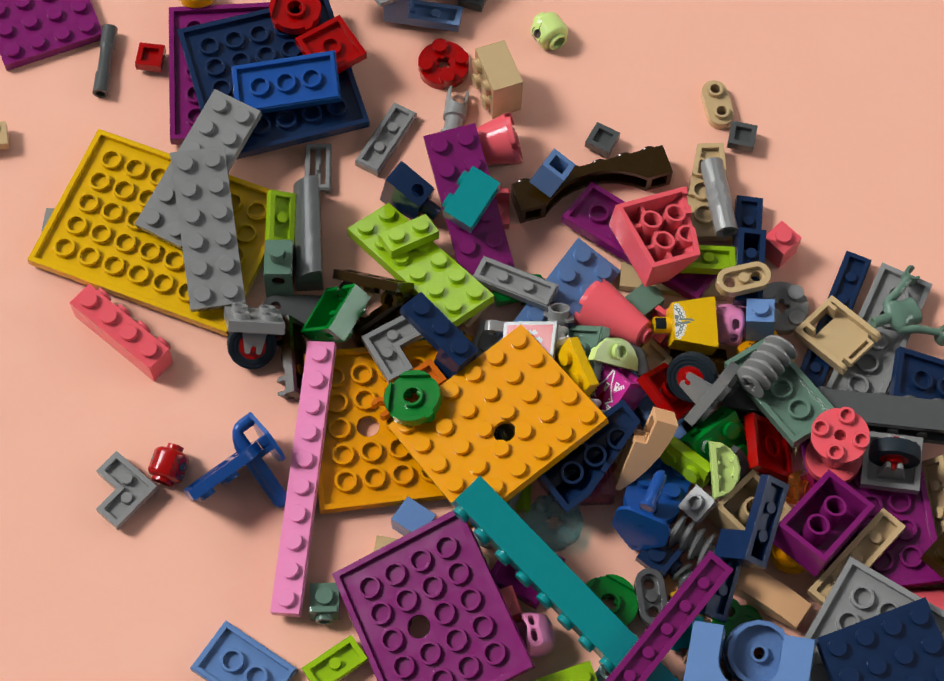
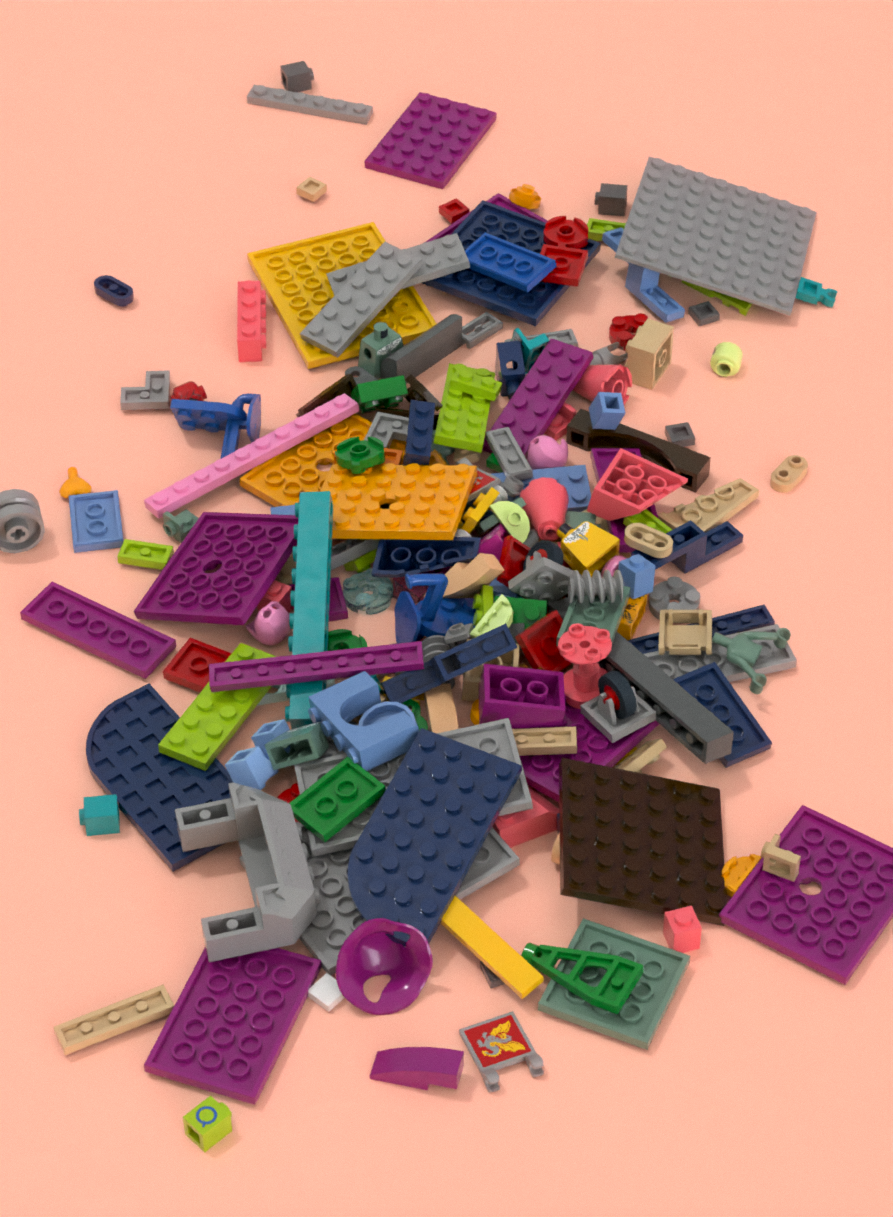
camera: 50 degrees right, 20 degrees down
(103, 75) = (416, 201): dark grey piece -> none
(180, 651) = (74, 484): none -> light orange rock
(252, 333) = (317, 370): light grey plate -> none
(280, 215) = (415, 324): lime plate -> none
(411, 156) = (530, 349): none -> teal panel
(471, 198) = (535, 387): teal brick -> none
(541, 254) = (547, 453): none -> bright pink helmet
(719, 197) = (711, 504): light grey axle -> none
(742, 136) = (779, 498): dark grey plate -> none
(781, 244) = (718, 565): coral brick -> none

